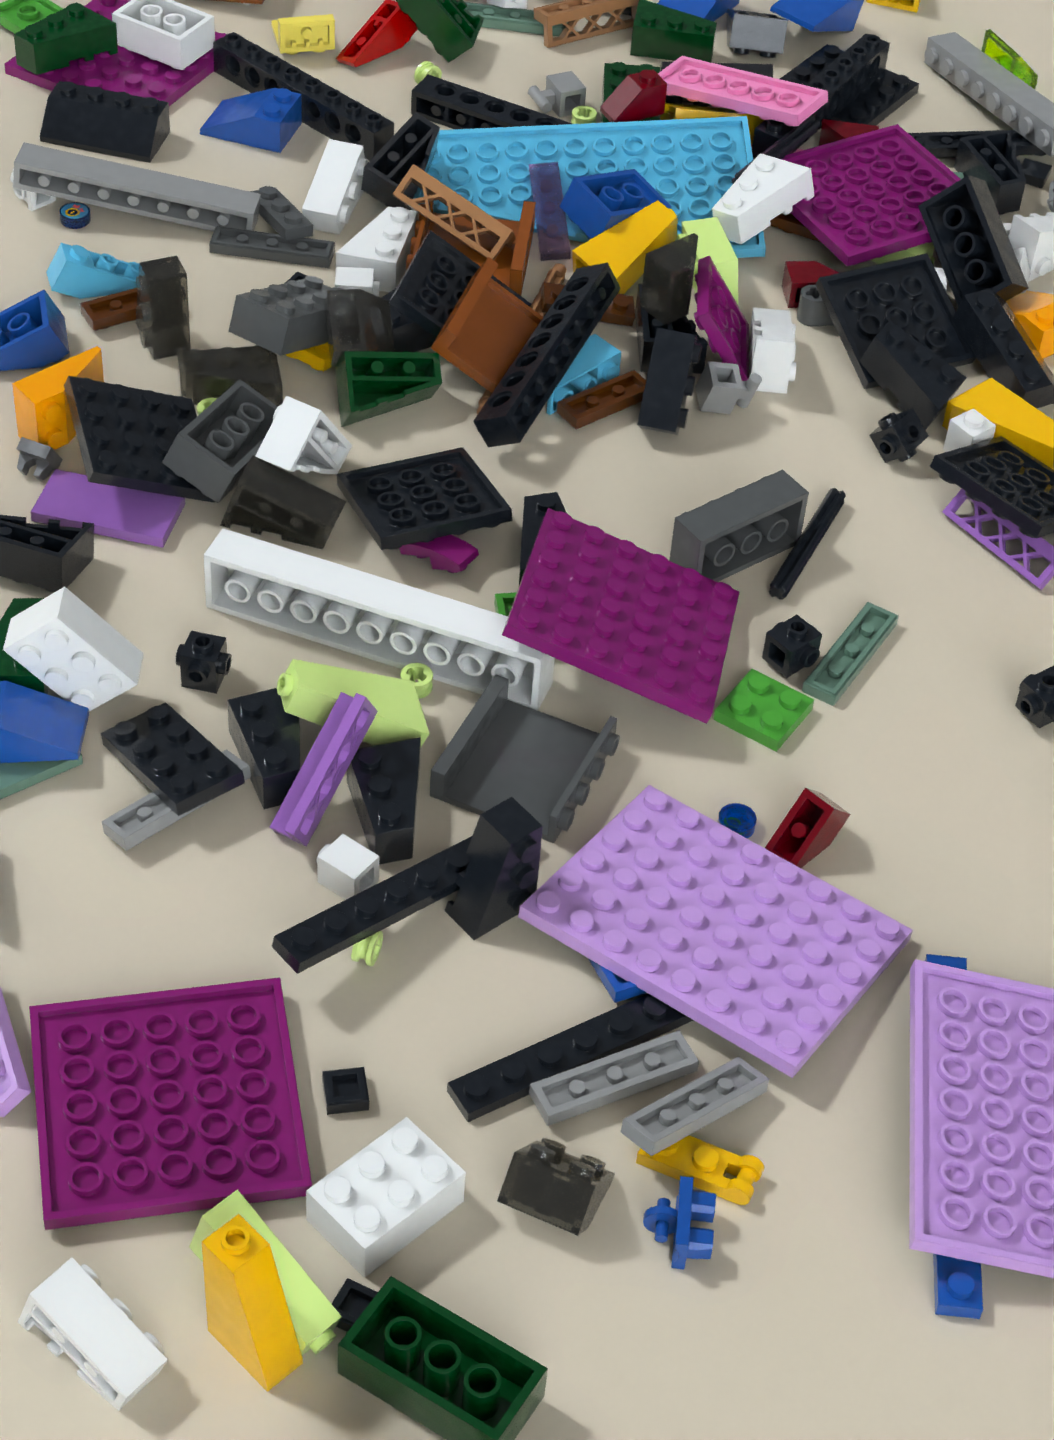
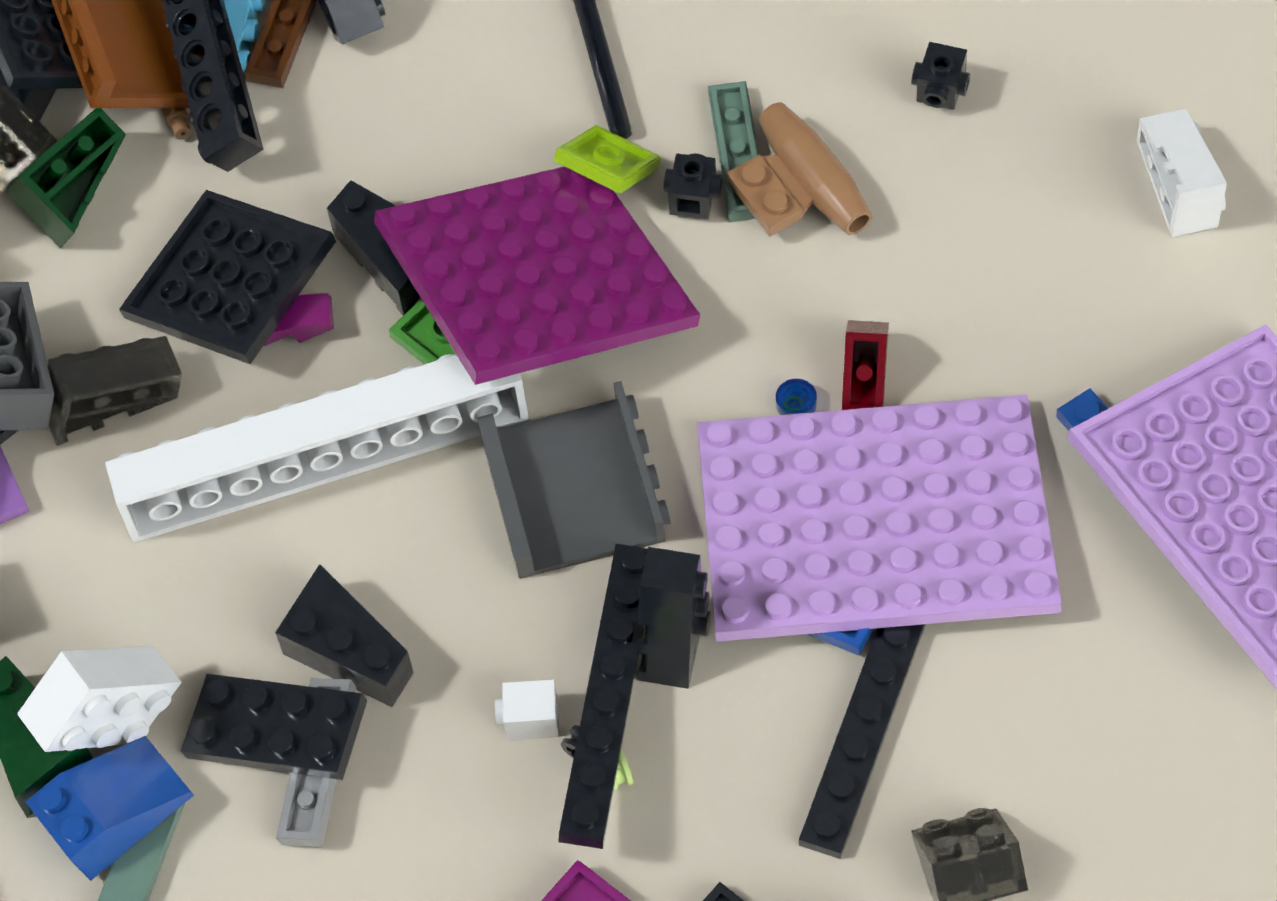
camera: 30 degrees left, 15 degrees up
(203, 661) = (201, 605): black brick -> none
(303, 440) = (73, 309): white wedge -> none
(313, 688) = (391, 545): yellowish green slope -> none
(324, 768) = (427, 634): medium lavender fence -> none
(385, 796) = (496, 613): black wedge -> none
(422, 674) = (390, 479): yellowish green bush -> none
(613, 1077) = (922, 726): light grey plate -> none
(687, 1240) = (1086, 814): blue hips -> none
(694, 1106) = (1013, 701): light grey plate -> none
(708, 1168) = (1051, 745): yellow plate -> none
(740, 527) = (542, 95): dark grey brick -> none
(747, 593) = (607, 159): none -> lime tile
(763, 709) = (719, 267): bright green plate -> none
(885, 690) = (800, 174): none -> medium nougat plate

